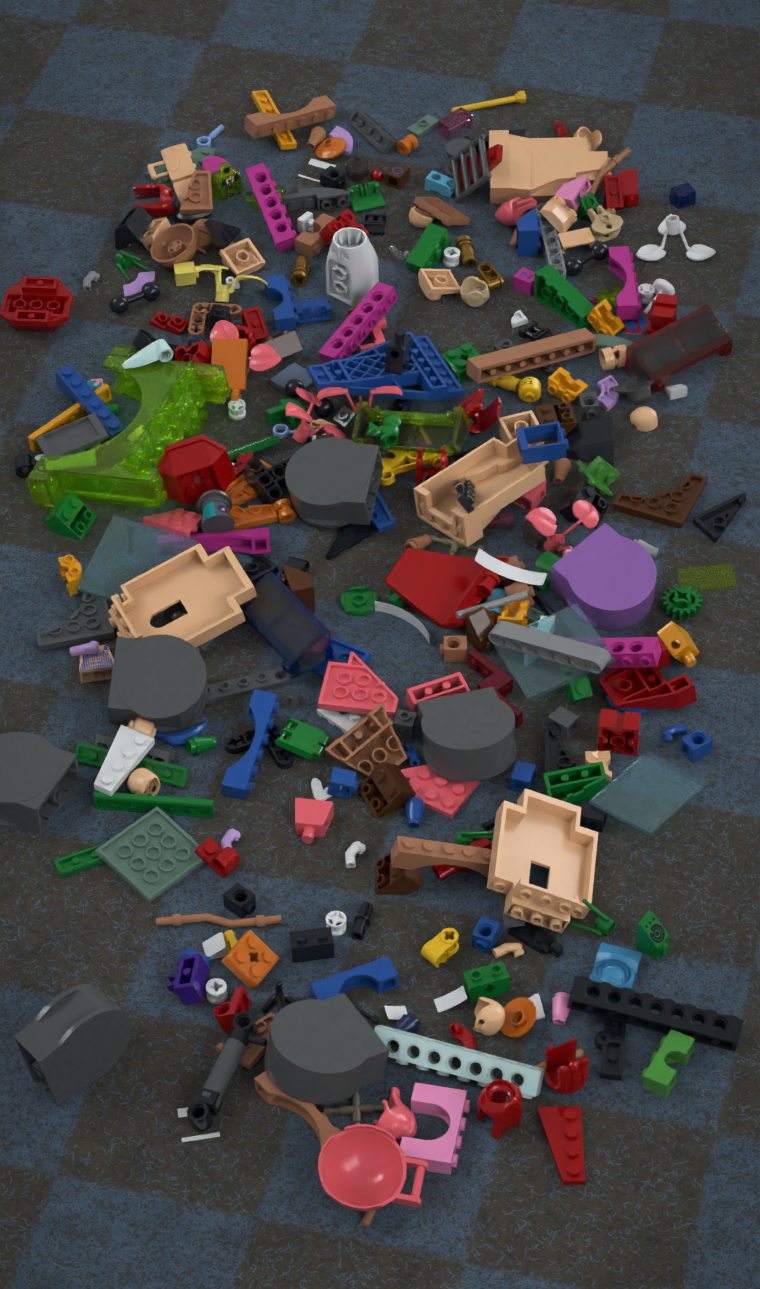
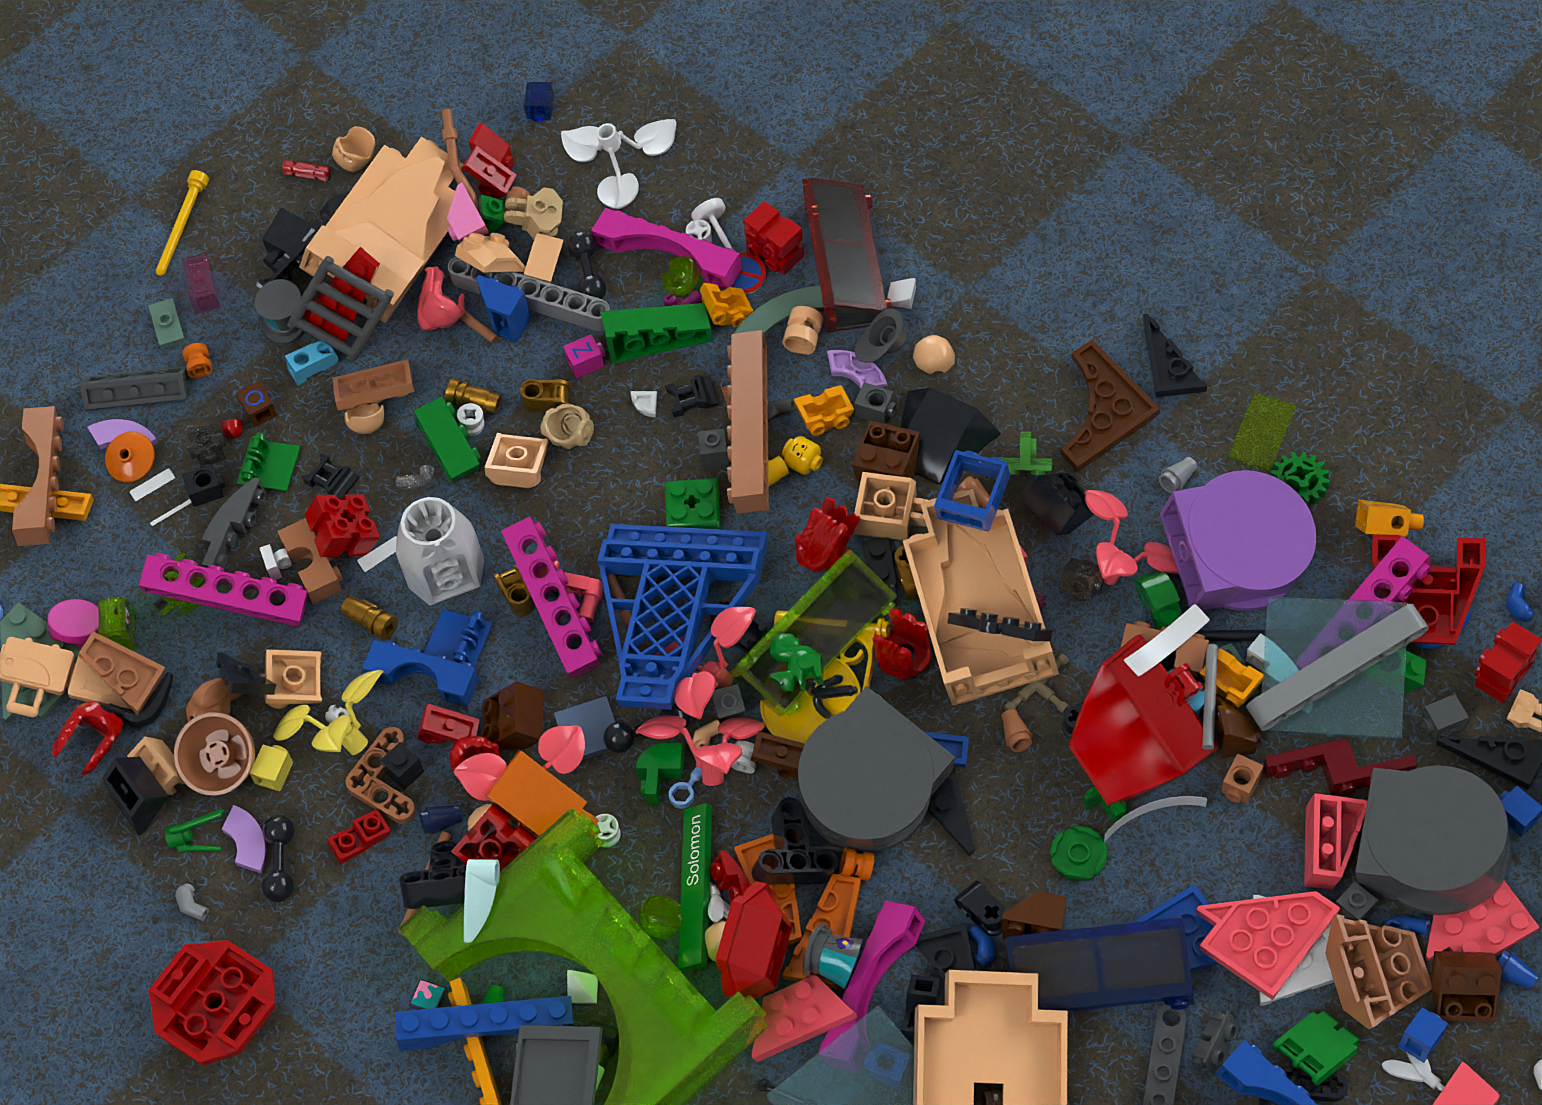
camera: 55 degrees left, 15 degrees up
(317, 135) = (94, 464): nougat cone -> none
(400, 347) = (665, 570): black torso -> none

